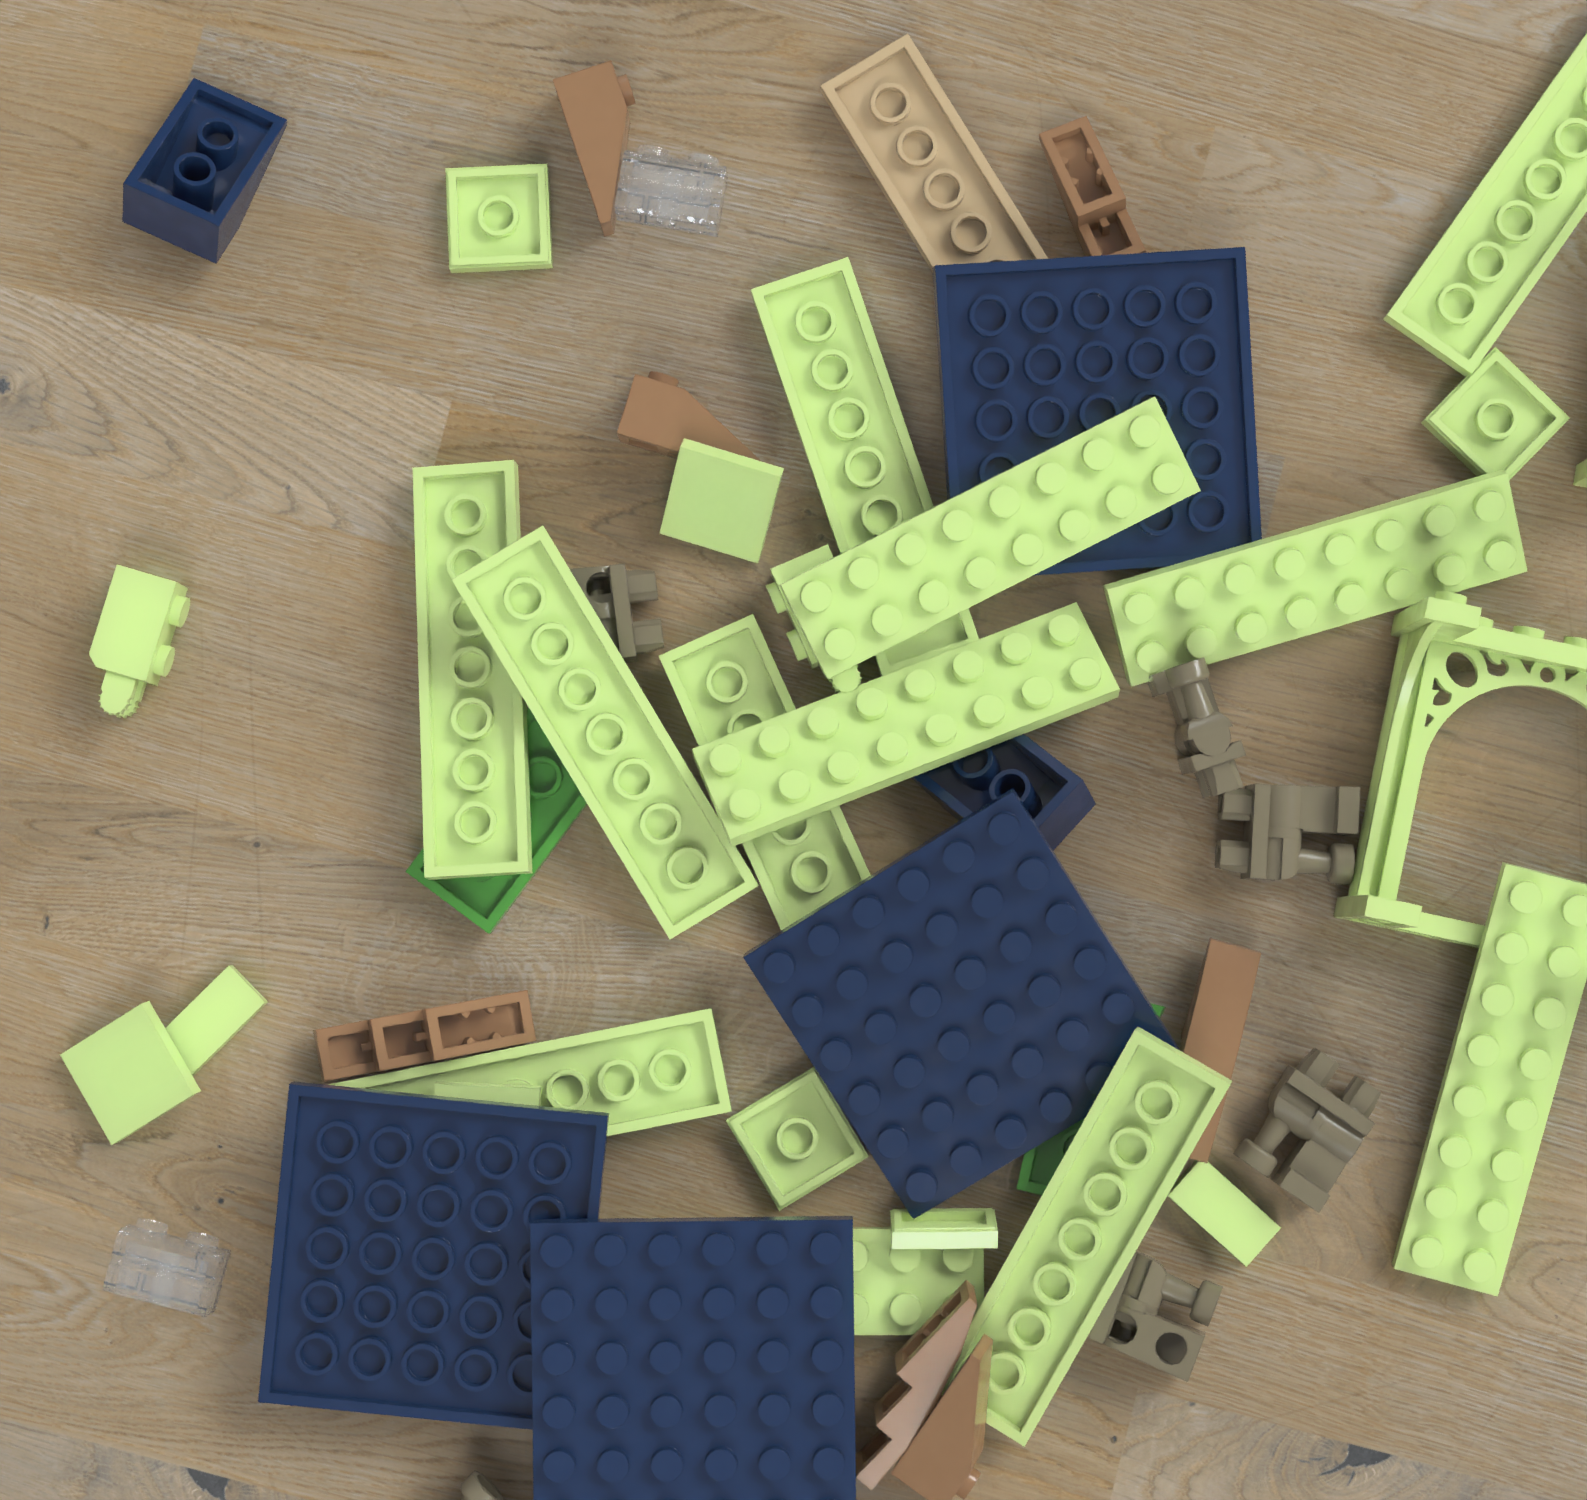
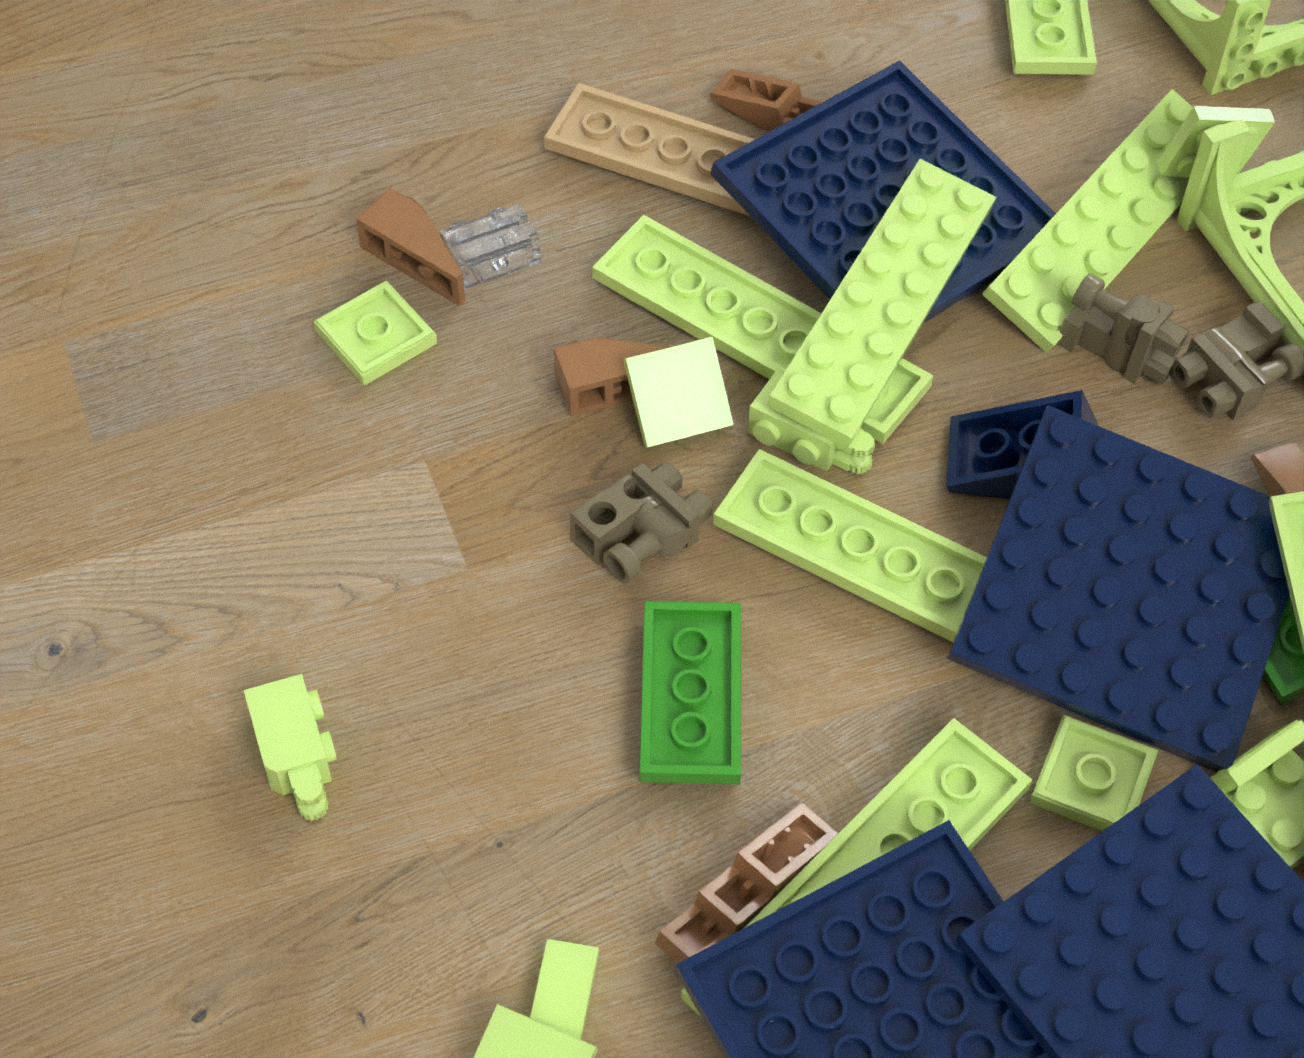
camera: 40 degrees left, 30 degrees down
(202, 170) = (127, 419): dark blue slope -> none
(467, 701) = (588, 605): yellowish green plate -> none
(605, 731) = (721, 572): yellowish green plate -> none
(904, 723) = (923, 449): yellowish green plate -> none
(1446, 573) = (1183, 148): none -> yellowish green plate
(1495, 418) = (1129, 83): yellowish green tile -> none

